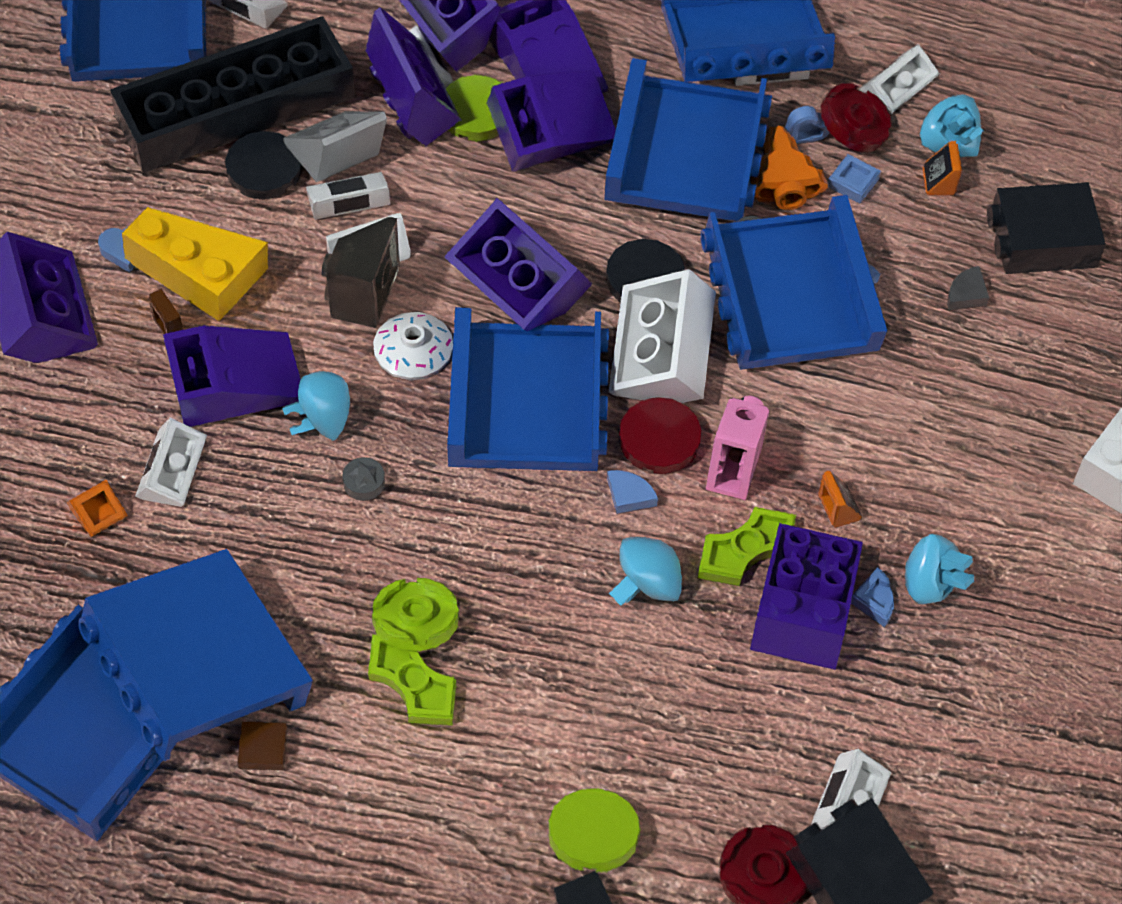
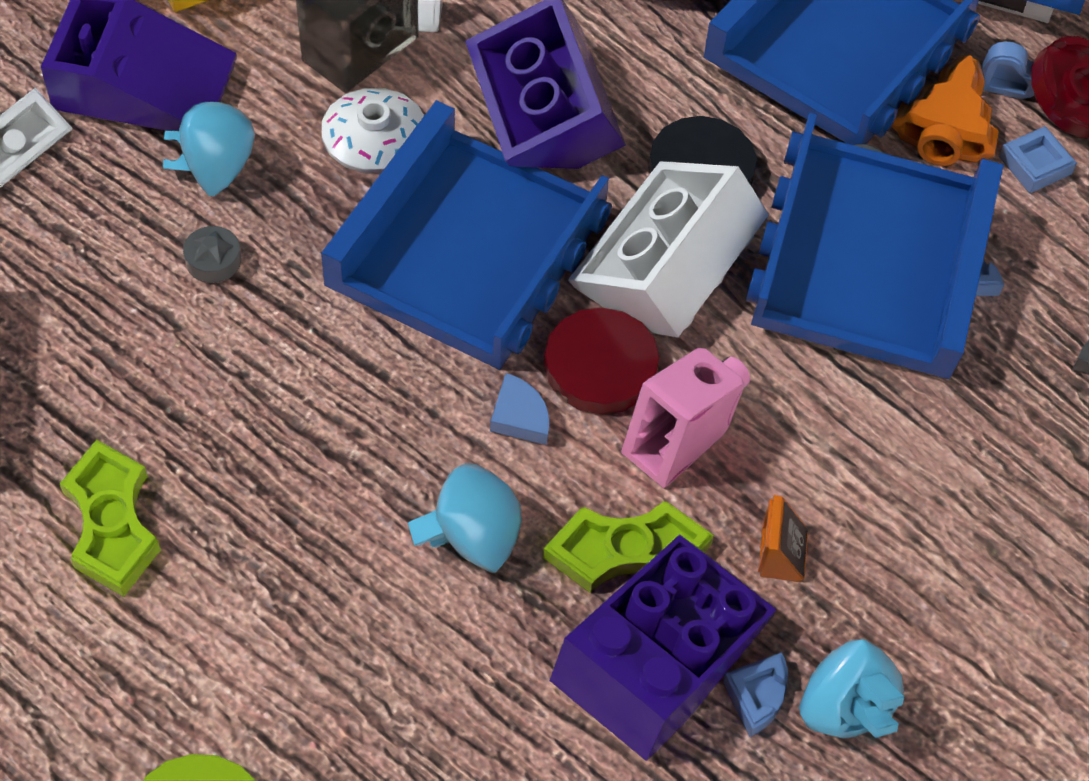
camera: 25 degrees right, 0 degrees up
(415, 614) = (161, 439): lime tile -> none

